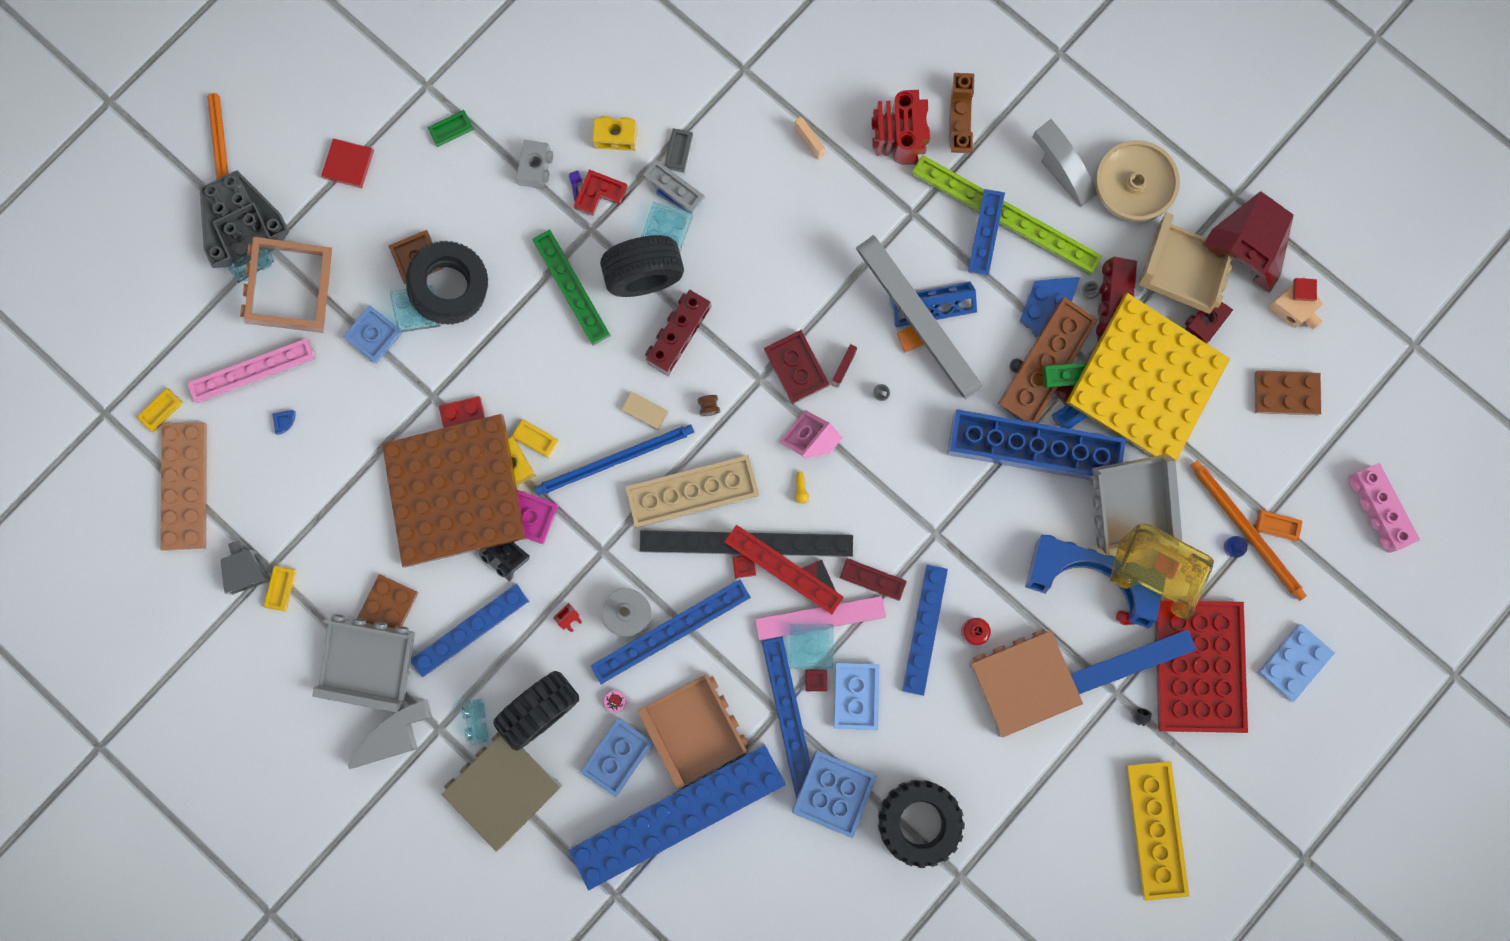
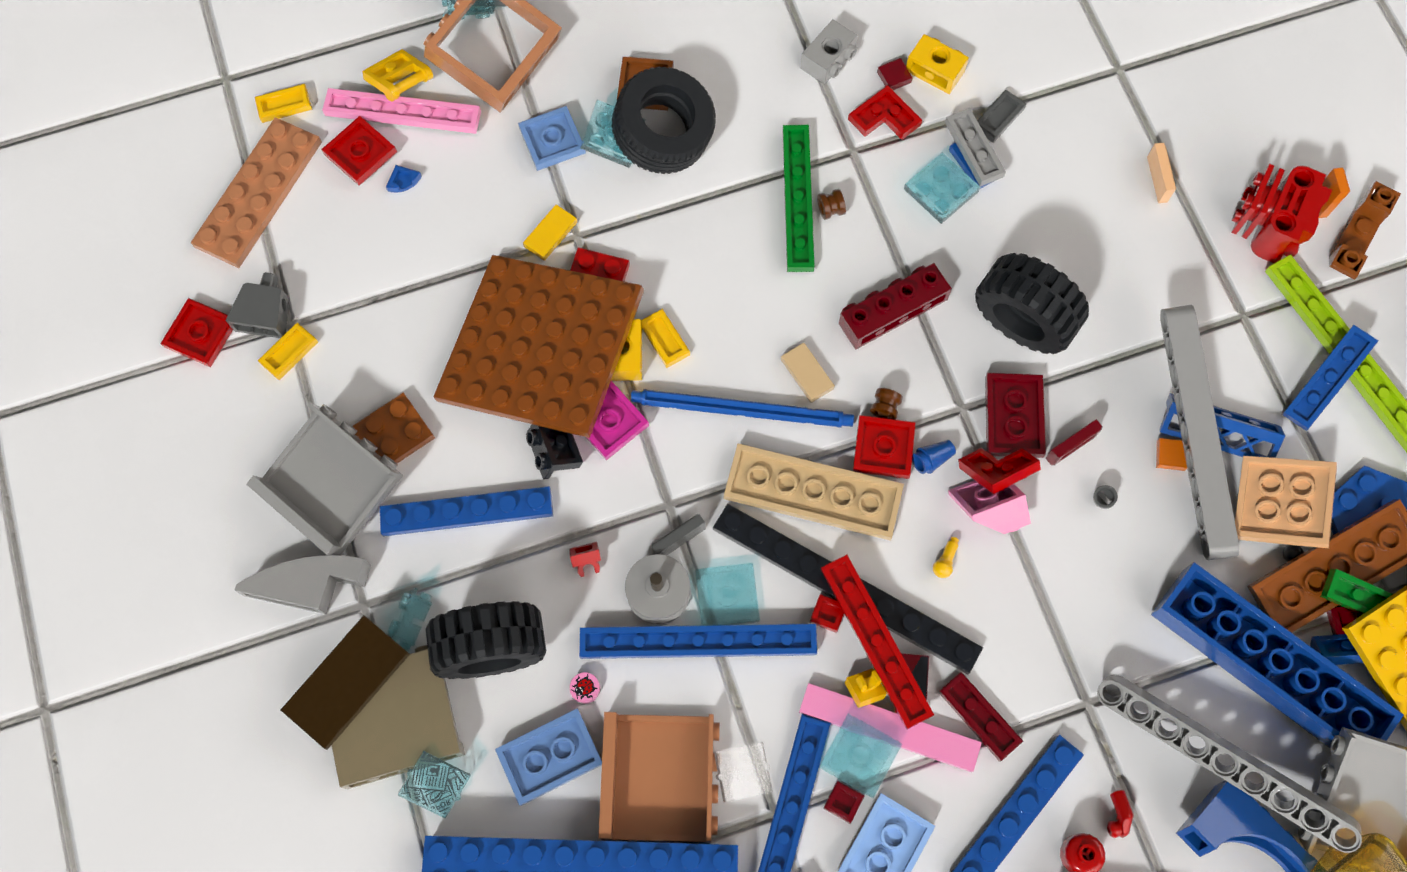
camera: 30 degrees right, 10 degrees down
(207, 609) = (198, 332): none -> red tile
(226, 344) = (394, 68): none -> yellow plate
(239, 417) = (359, 150): none -> red plate
(412, 404) = (550, 232): none -> yellow tile
(460, 786) = (345, 682): none -> dark brown tile
(554, 815) = (434, 784): none -> clear light blue piece
(575, 178) = (866, 88): dark purple hand -> none
(589, 156) = (894, 74): none -> dark red tile
(595, 280) = (831, 204): none -> reddish brown wheel
(621, 570) = (679, 536): none -> dark grey tile
(642, 266) = (894, 206): black tyre -> none
(673, 590) = (727, 595): none -> clear light blue tile
(722, 435) = (884, 447): none -> red plate
(744, 697) = (743, 772): none -> clear piece
(756, 426) = (931, 457): none -> blue cone
(769, 288) = (1032, 303): none -> black tyre
(792, 602) = (865, 687): none -> yellow tile
(804, 416) = (1001, 473): none -> red plate
(929, 92) = (1340, 188): none -> orange tile
(989, 591) = (1124, 817): none -> red arm
(995, 334) = (1286, 501): none -> light nougat plate
(1042, 533) = (1235, 774): none -> light grey beam

